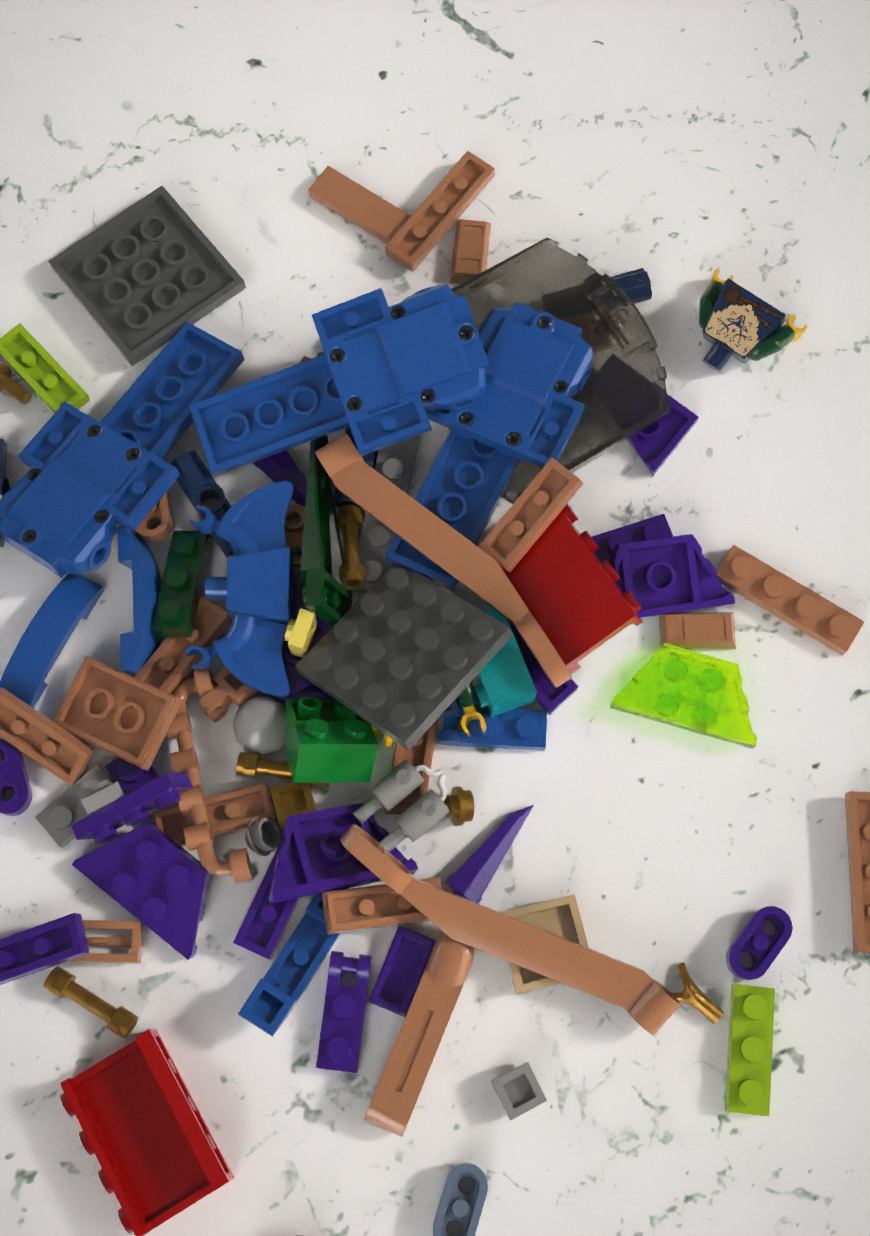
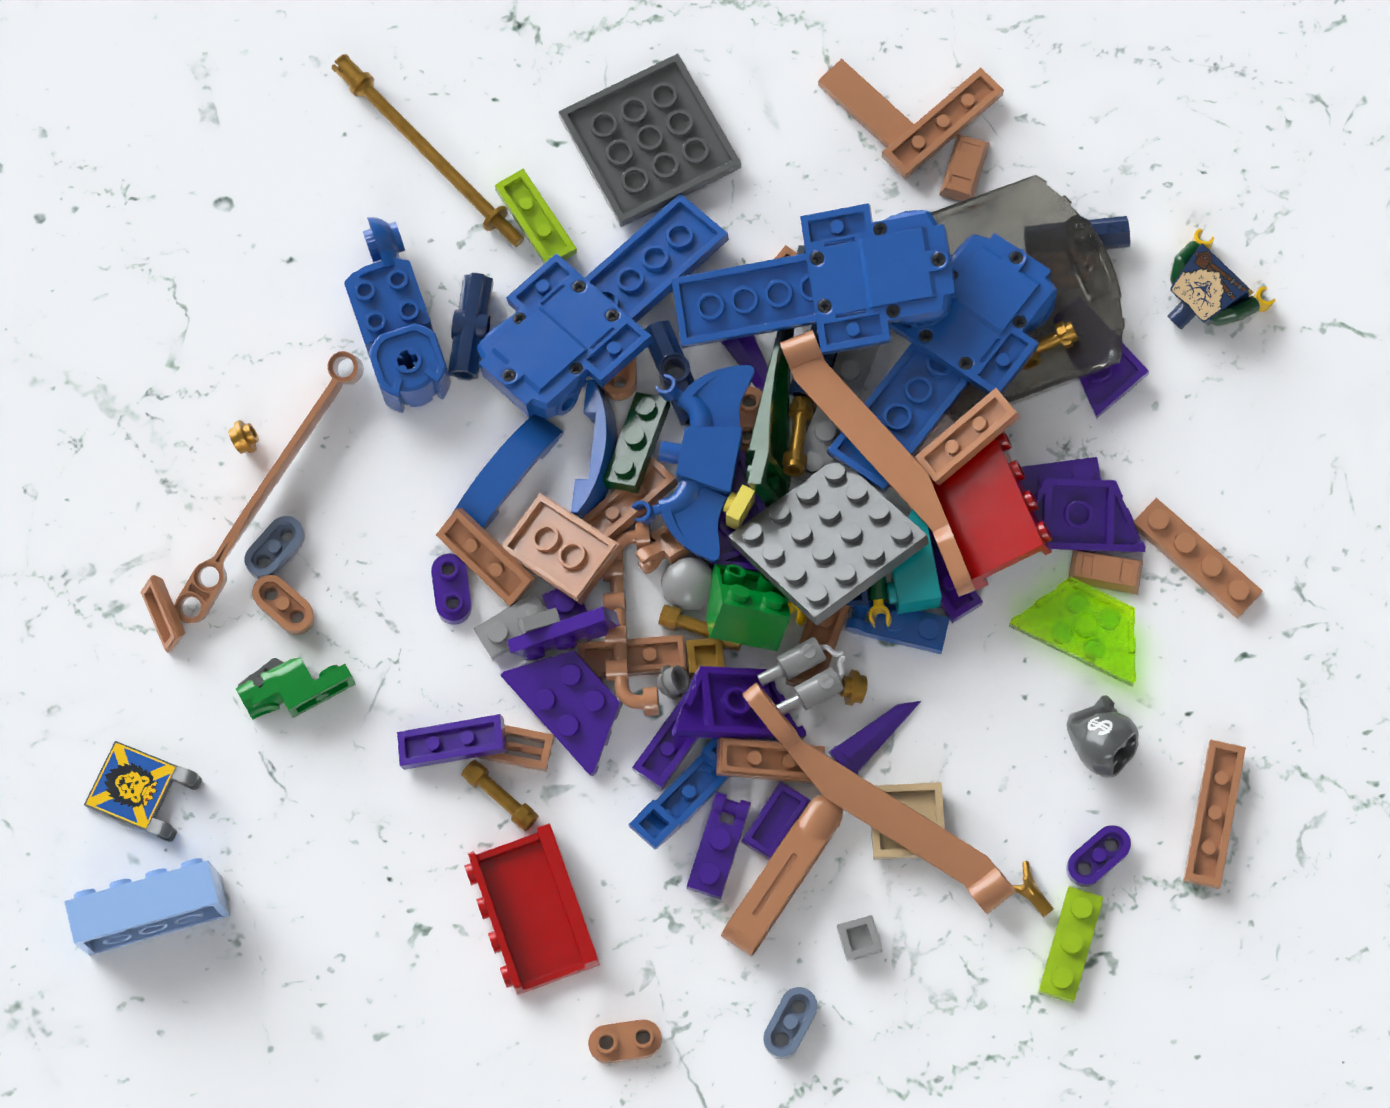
camera: 15 degrees right, 0 degrees up
(607, 394) = (1064, 335): none -> pearl gold bar
(735, 810) = (1103, 737): none -> dark grey piece

